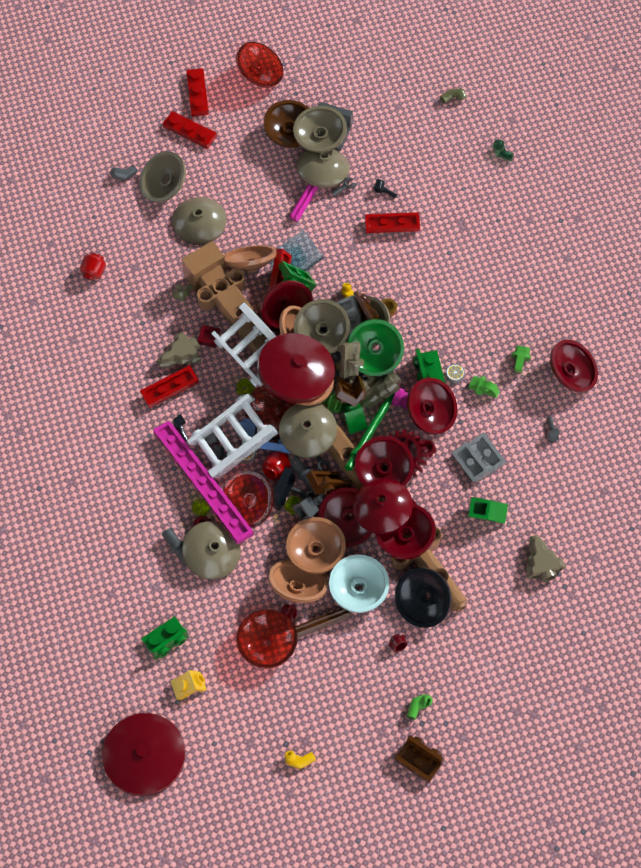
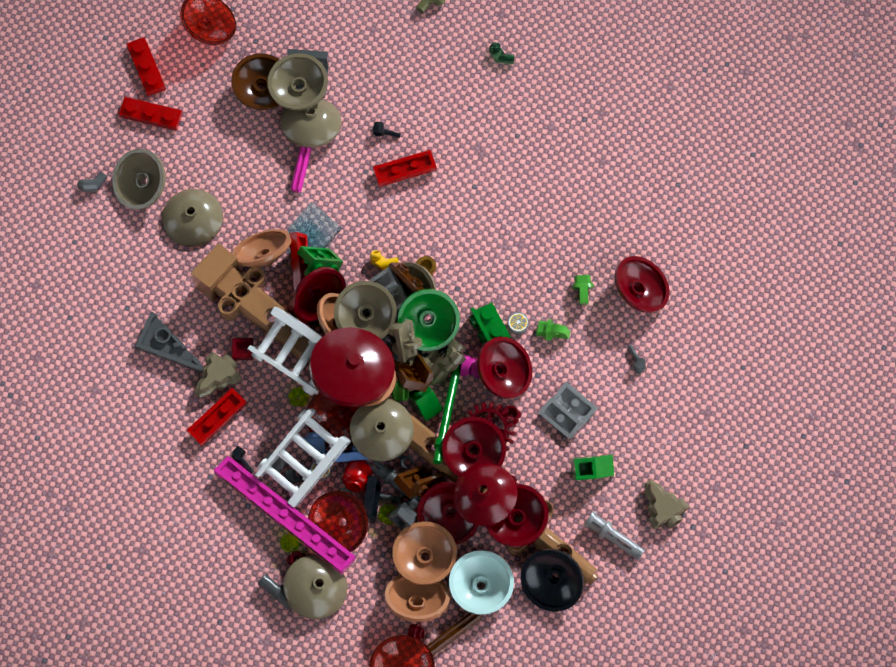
camera: 15 degrees left, 5 degrees up
(92, 266) = (92, 301): red head -> none
(141, 314) = (162, 343): none -> dark grey wing
(181, 291) = (198, 306): olive piece -> none
(346, 185) = (340, 139): dark grey hand -> none
(398, 643) = (538, 634): dark red plate -> none
(482, 568) = (605, 528): none -> light grey pin

